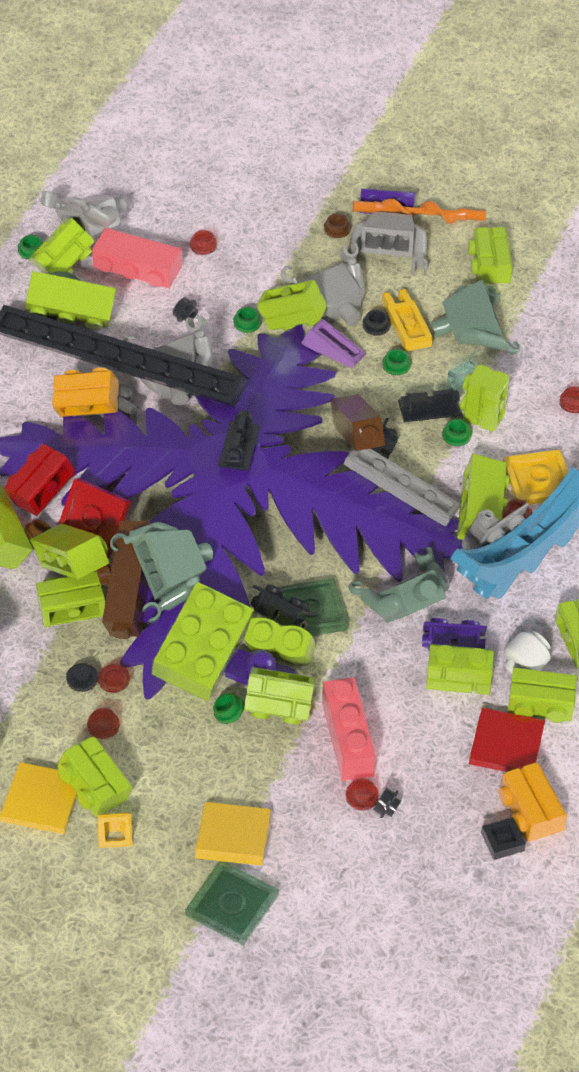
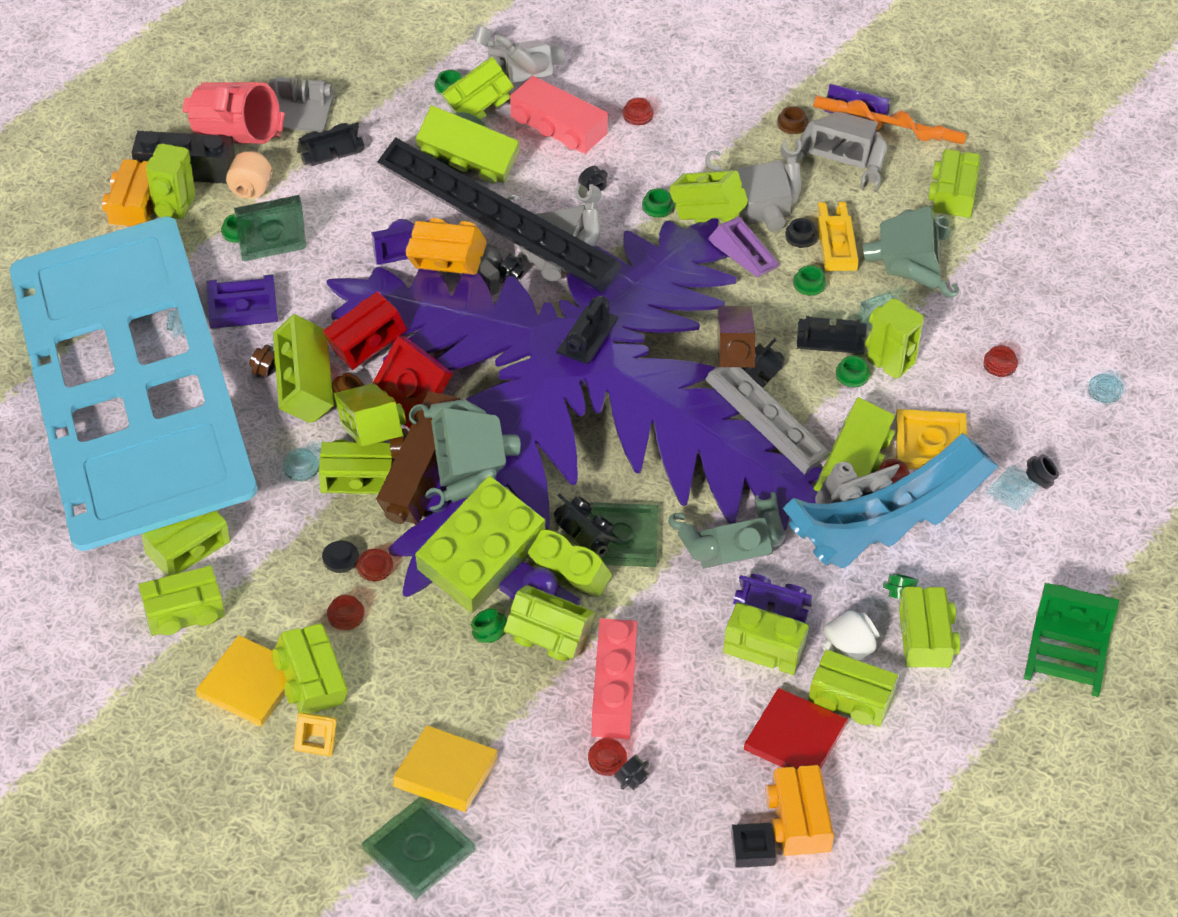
camera: 15 degrees right, 0 degrees up
(20, 606) = (301, 464): none -> clear light blue plate
(35, 396) = (391, 243): none -> dark purple tile
(142, 400) = (511, 267): none -> black plate
(550, 602) = (897, 582): none -> green plate

